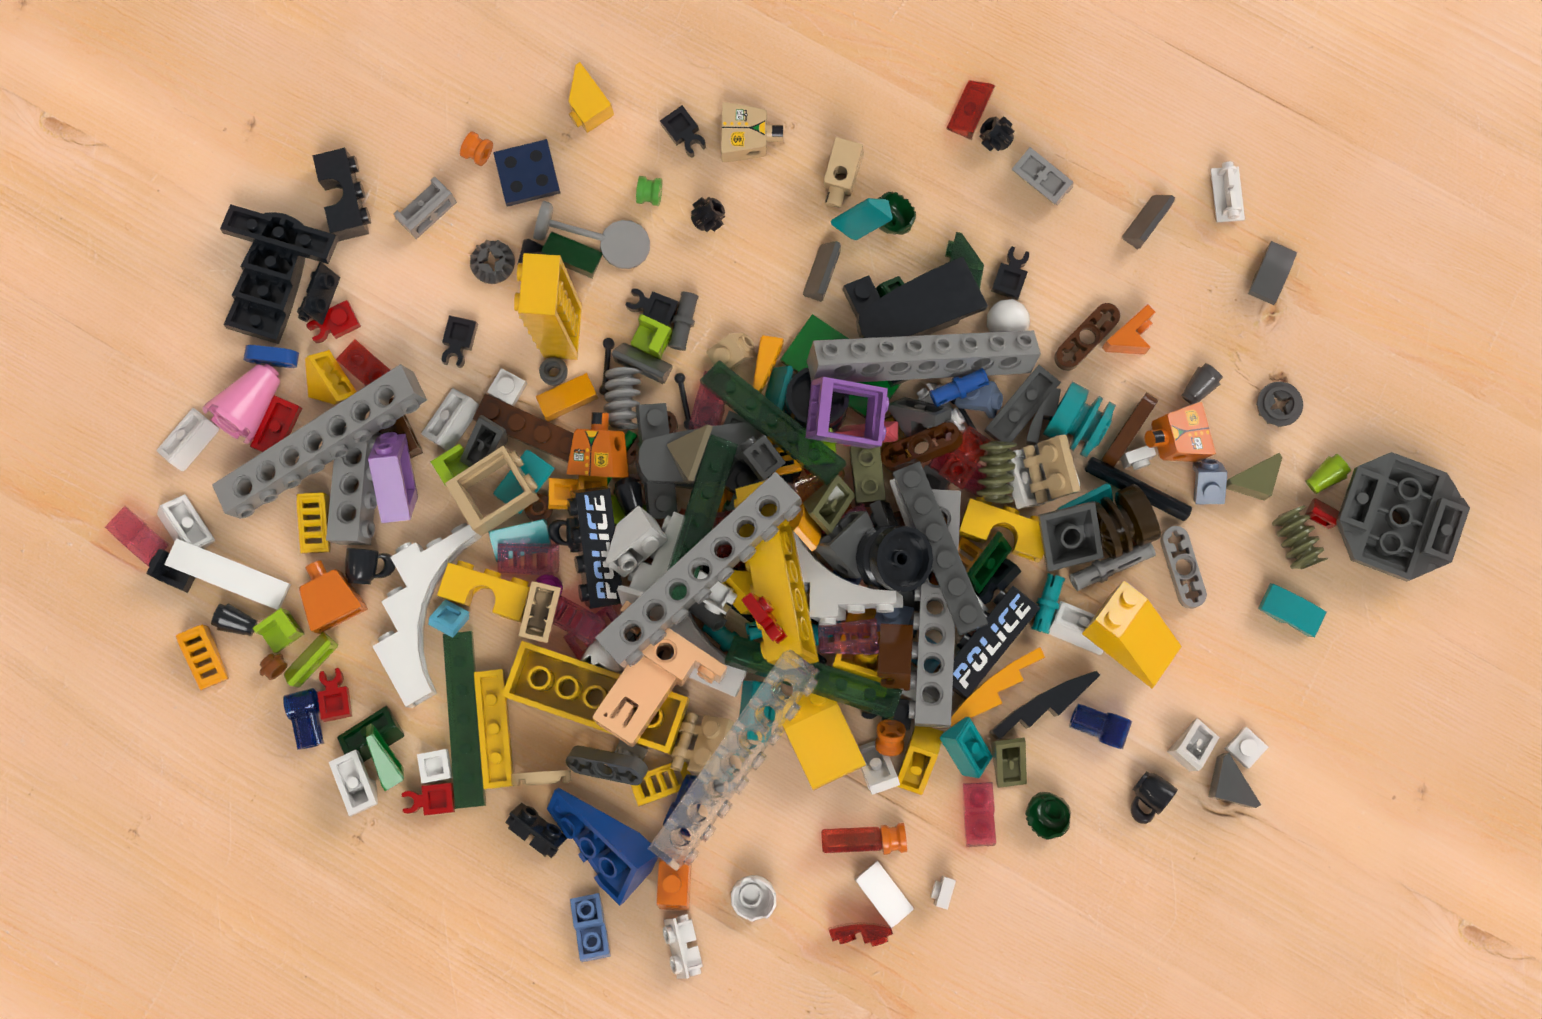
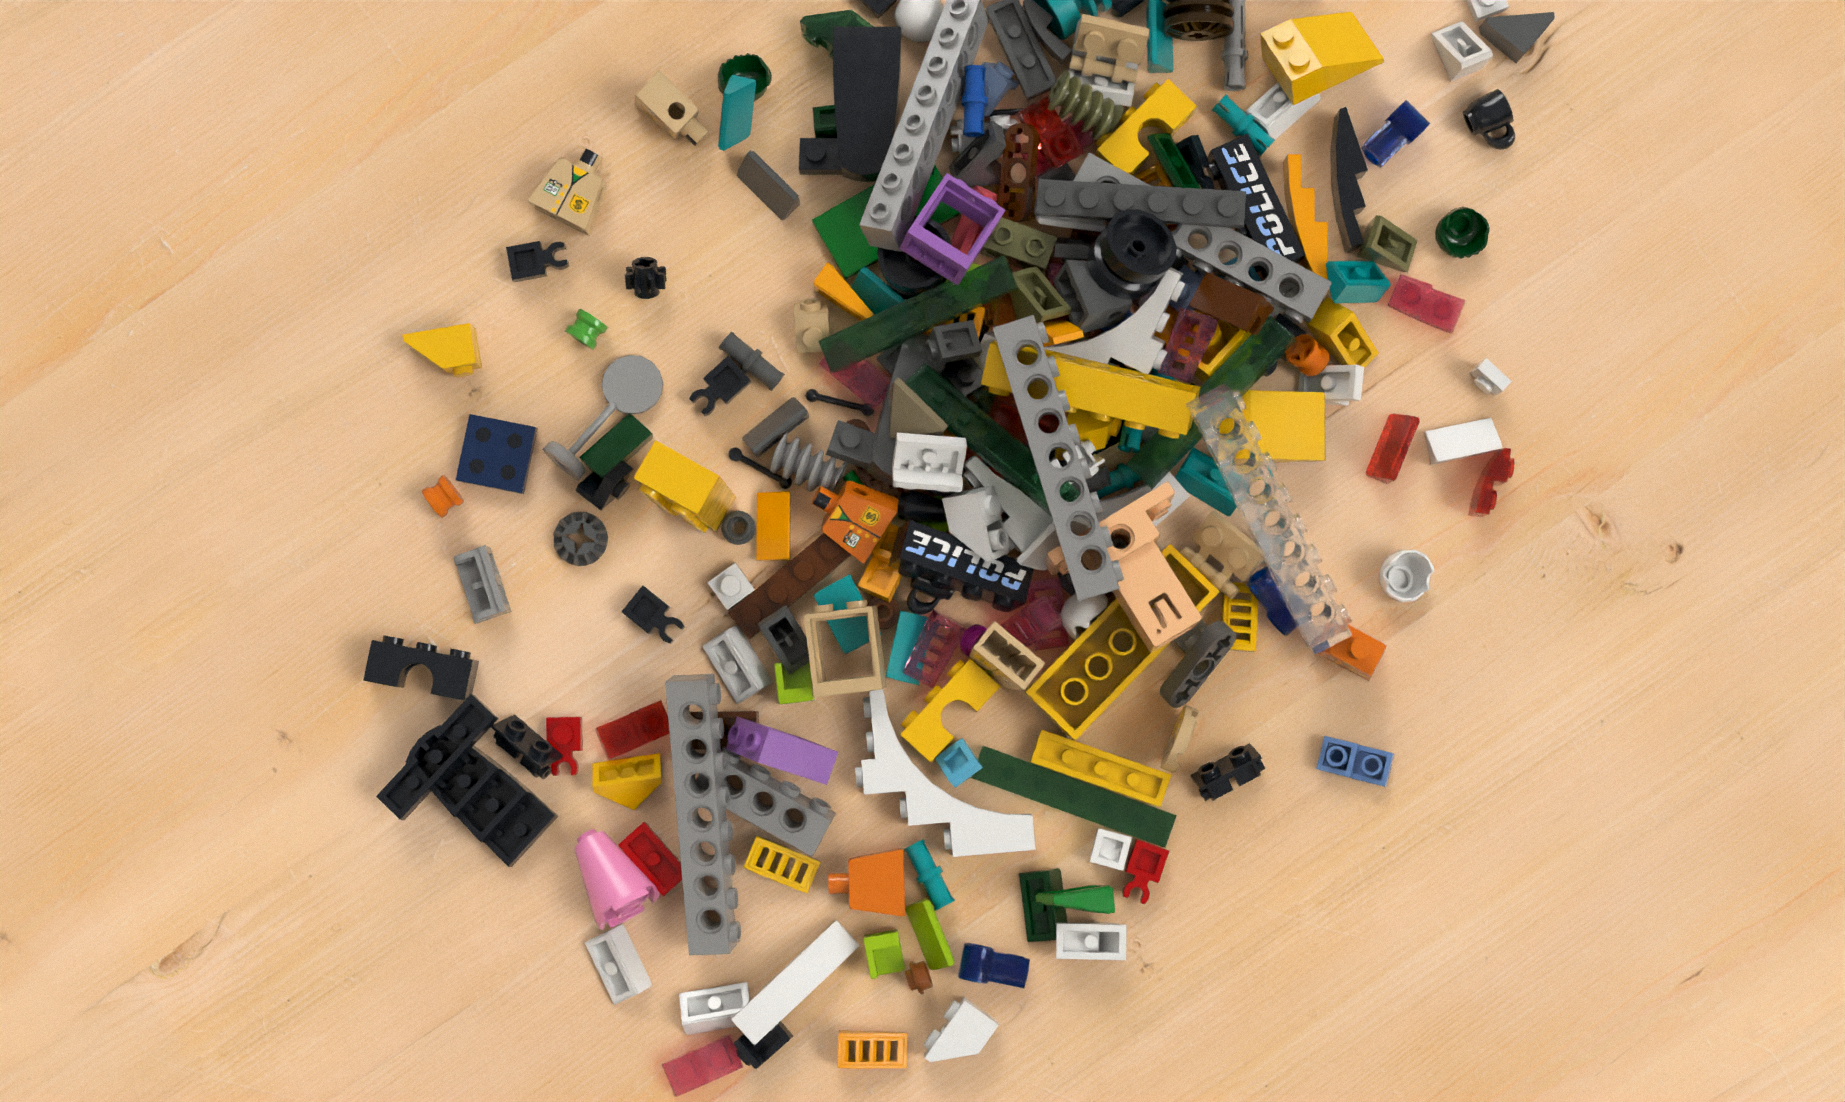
camera: 70 degrees left, 5 degrees up
(232, 620) = (849, 998): black cone -> none
(243, 720) = (963, 1033): none -> white slope
(271, 355) = (570, 829): blue beam -> none
(335, 700) = (989, 925): red plate -> none
(353, 637) = (929, 874): none -> teal pin
(362, 565) = (854, 830): black piece -> none
(611, 847) = (1284, 701): blue wedge -> none
(651, 336) = (752, 404): lime panel -> none
(659, 481) = (928, 462): none -> white bracket
(683, 959) = (1435, 678): white hinge -> none
(761, 611) = (1130, 413): red plate -> none
(893, 838) = (1412, 401): orange wheel -> none
(1070, 536) = (1190, 63): dark grey slope -> none

